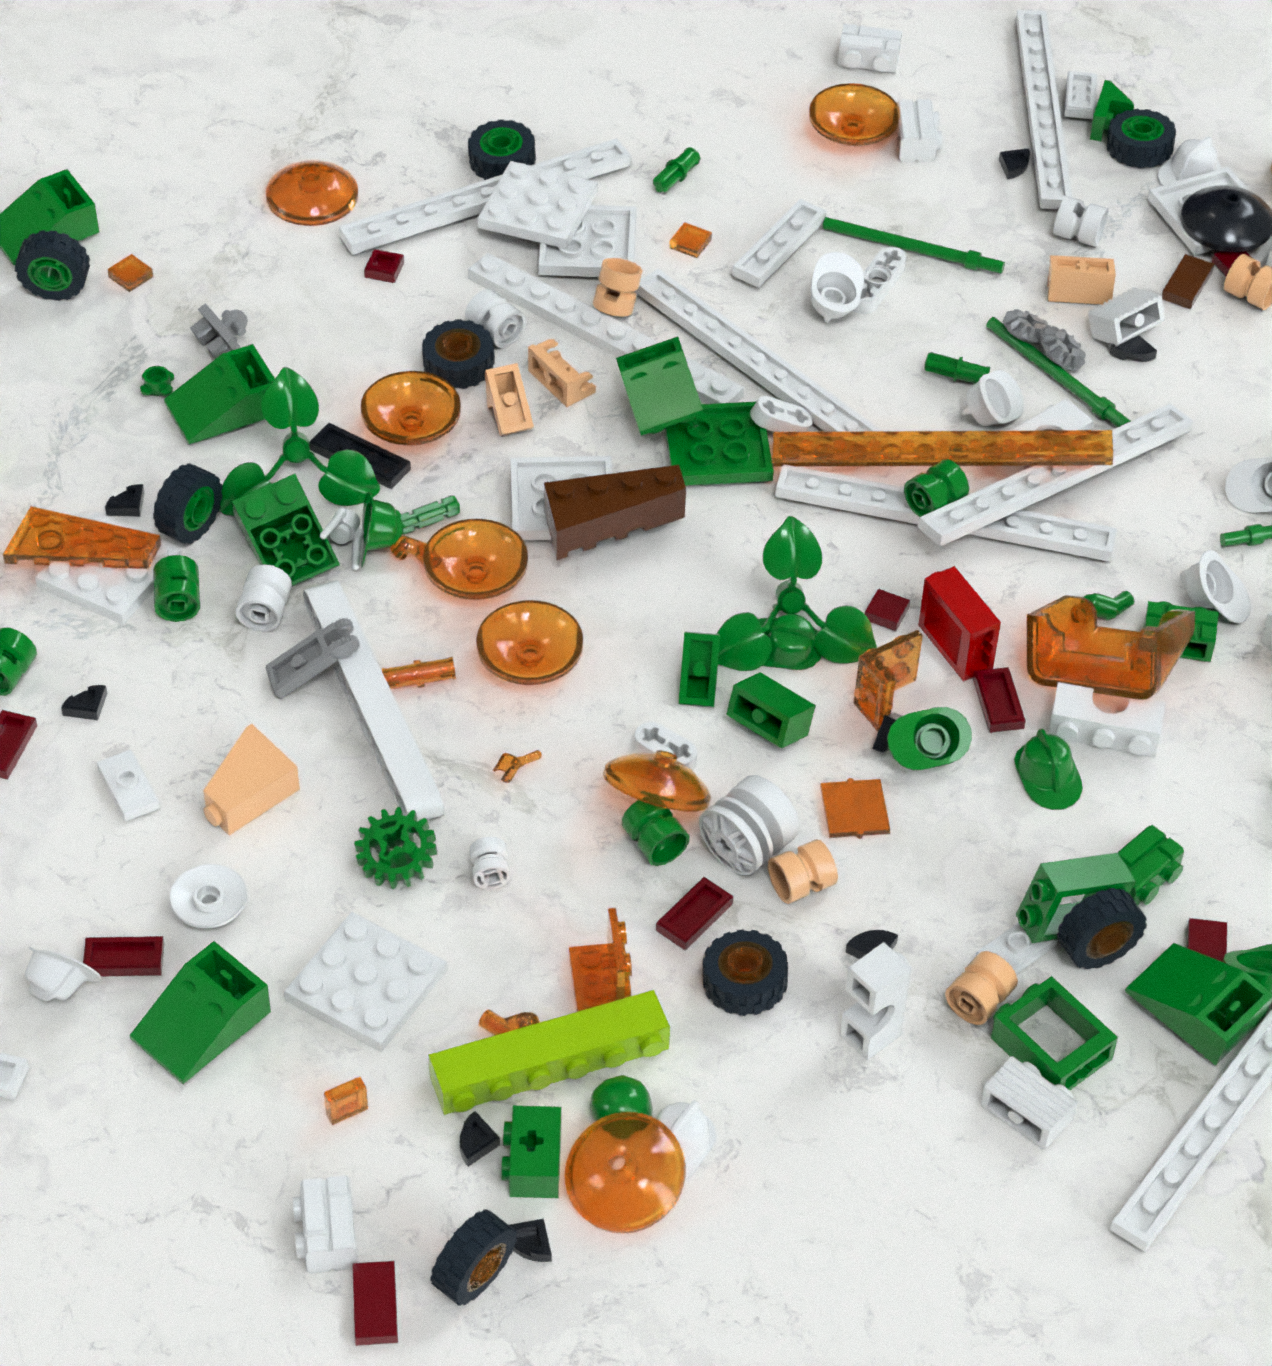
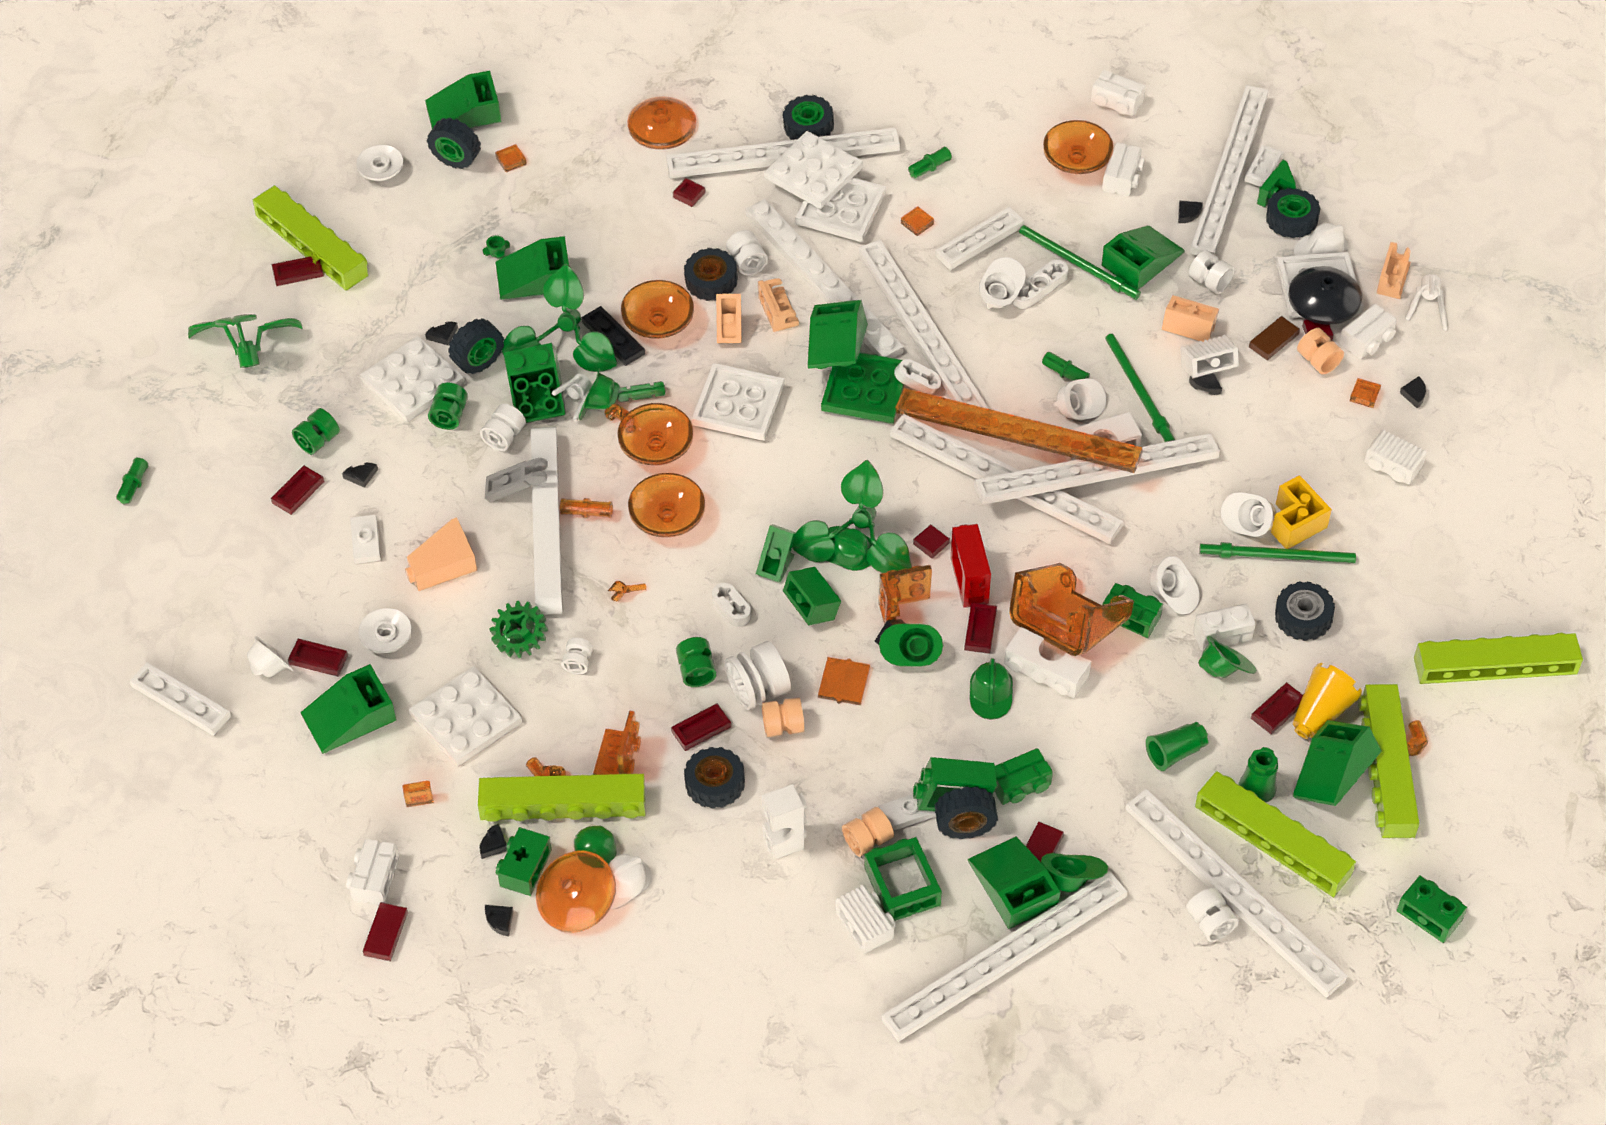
camera: 20 degrees right, 5 degrees up
(65, 537) = (394, 355): clear orange wing -> none
(210, 325) = (554, 216): light grey hips -> none
(473, 1257) = (452, 920): black wheel -> none
(611, 506) = (762, 417): reddish brown wedge -> none
(617, 287) = (842, 248): light nougat wheel -> none
(658, 781) = (709, 629): clear orange dish -> none
(869, 940) = (810, 782): black tile -> none
(937, 488) = (999, 460): green wheel -> none
(984, 222) = (1139, 255): none -> green slope
(1025, 326) = (1124, 345): light grey gear -> none
(1062, 348) = (1143, 371): light grey gear -> none
(1109, 608) = (1091, 579): green arm -> none

